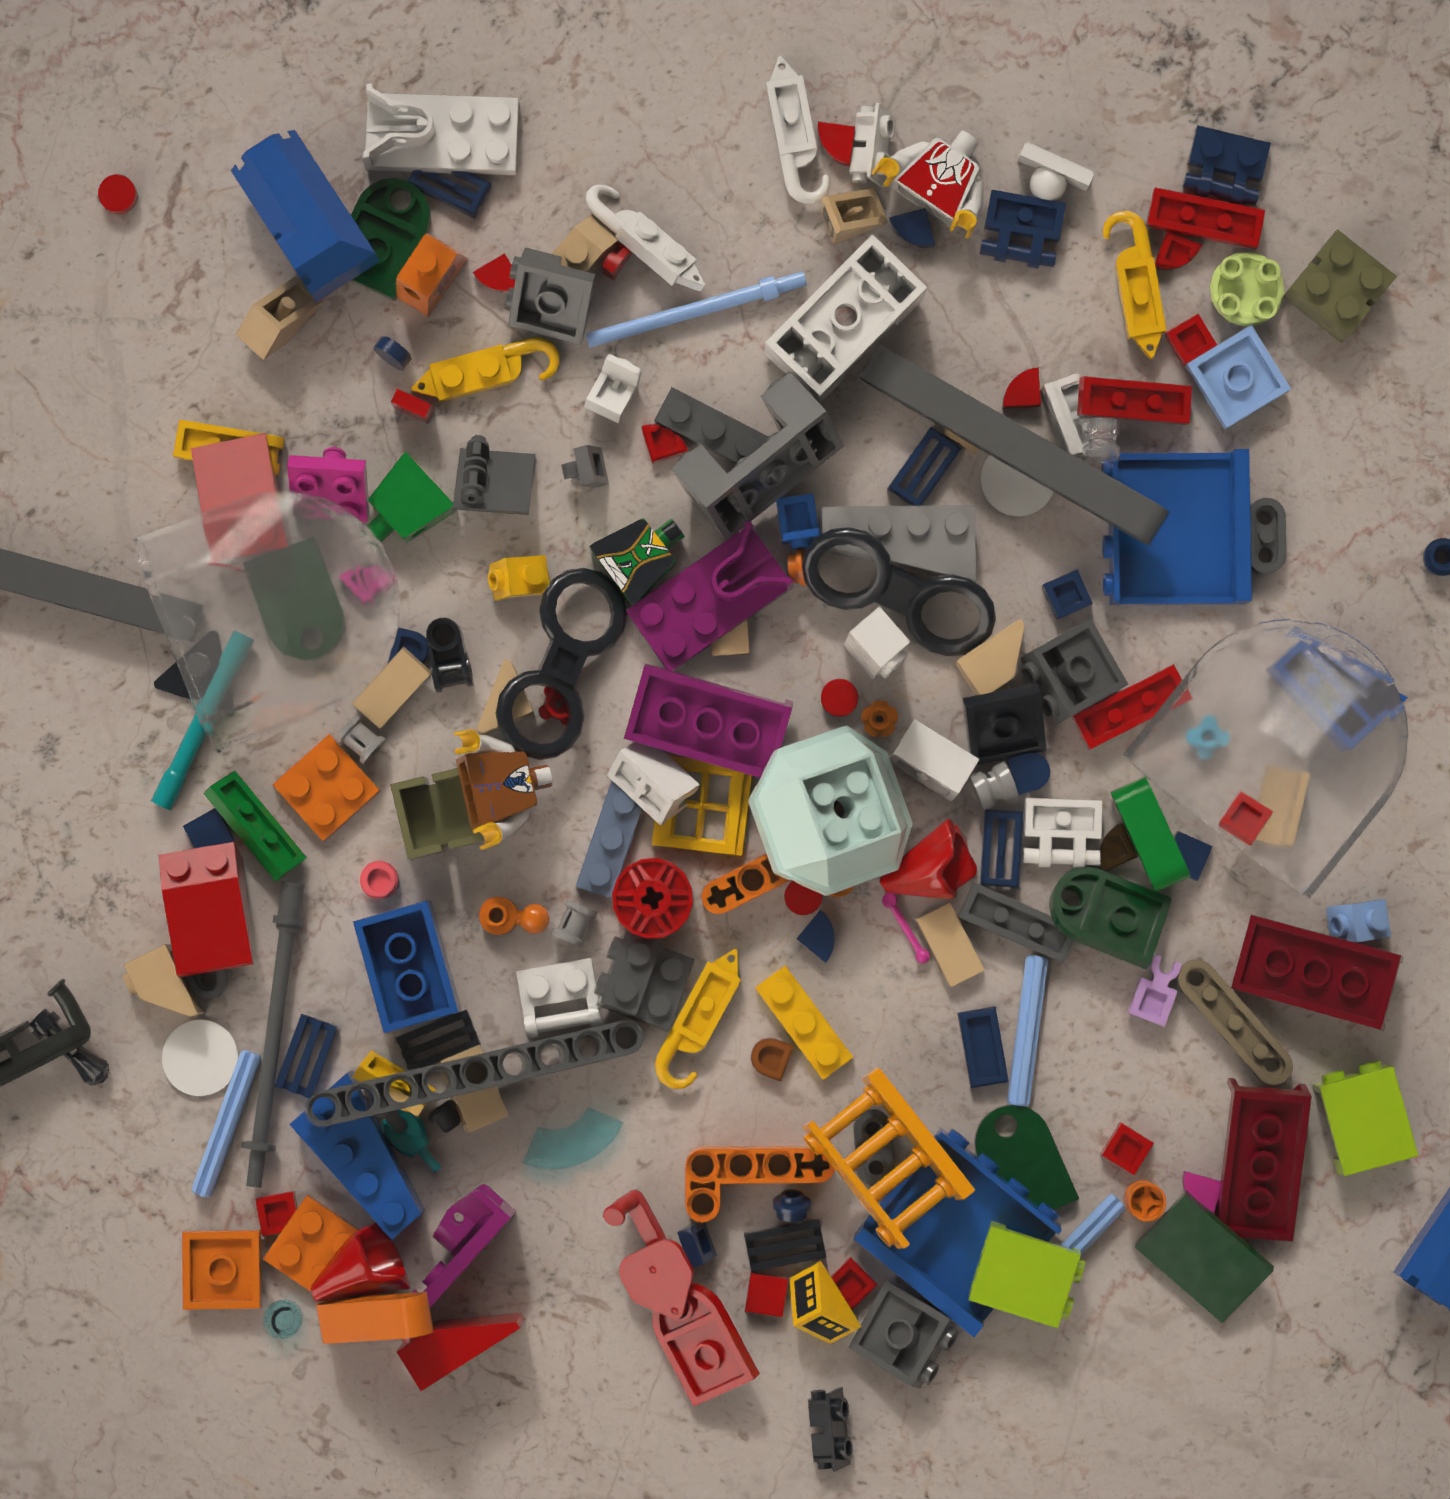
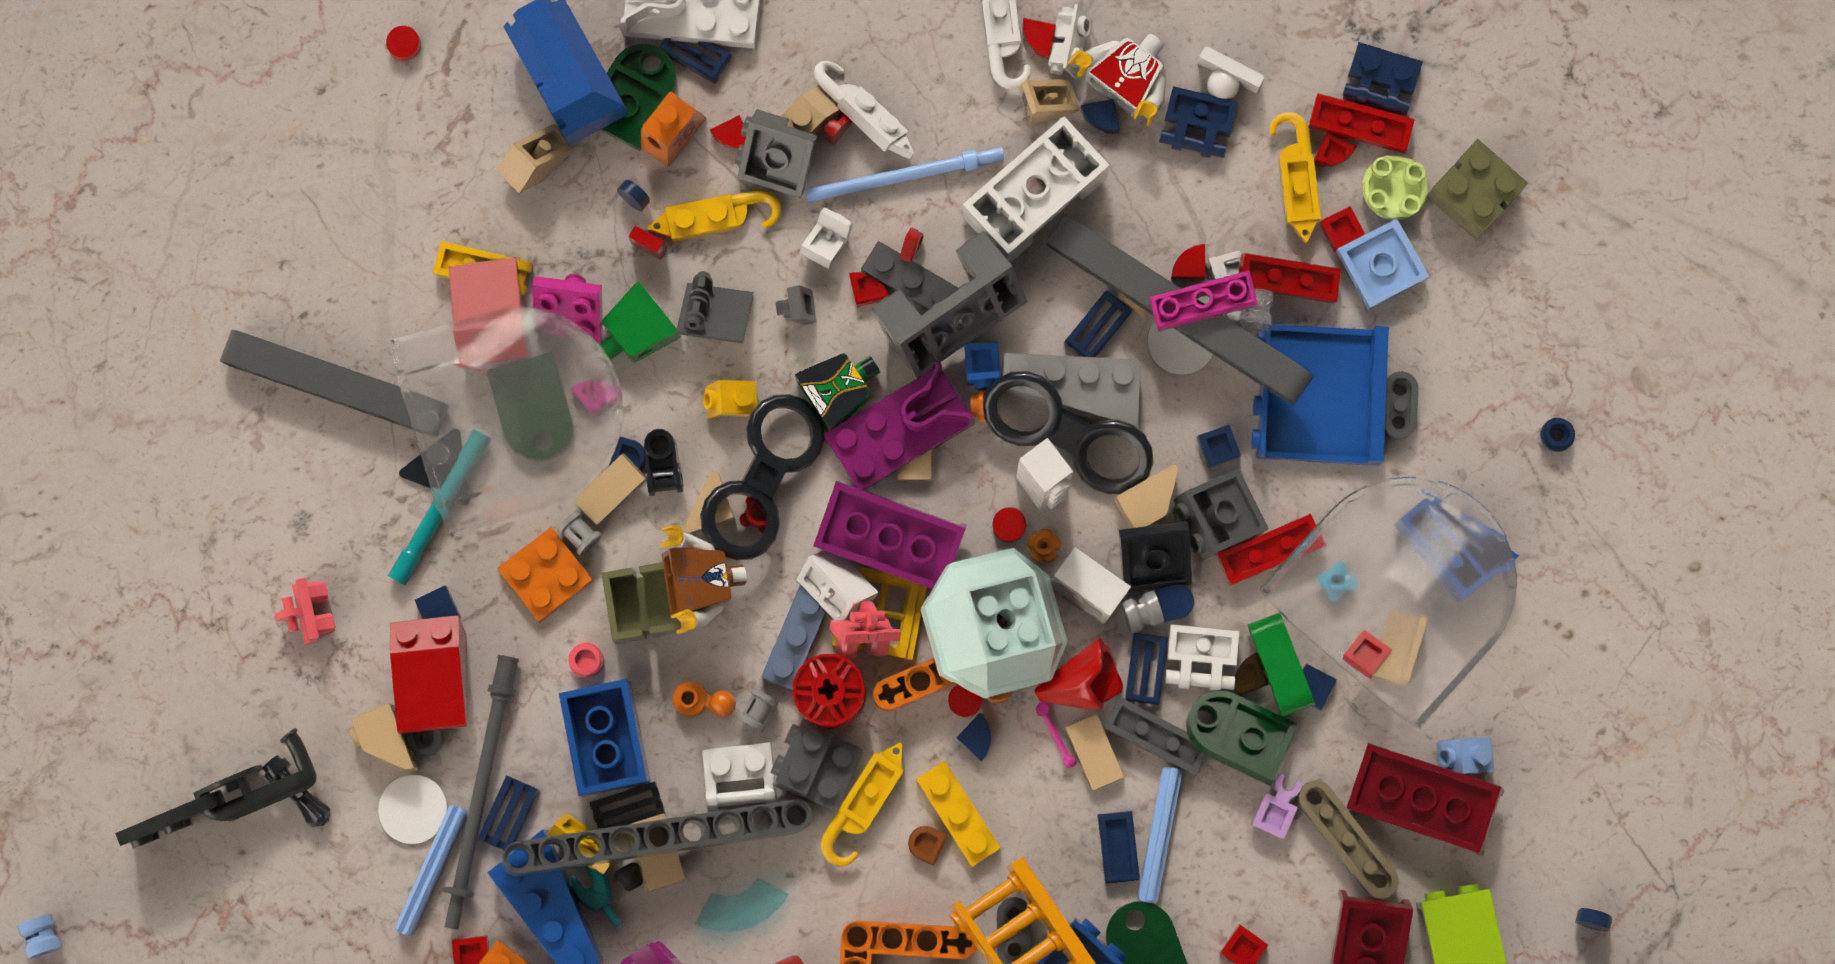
camera: 10 degrees right, 5 degrees down
(60, 830) = (306, 595): none -> coral hips
(255, 825) = (478, 603): green plate -> none
(688, 825) = (864, 627): none -> coral hips
(709, 390) = (911, 244): none -> red tile
(1066, 429) = (1225, 295): none -> dark pink tile

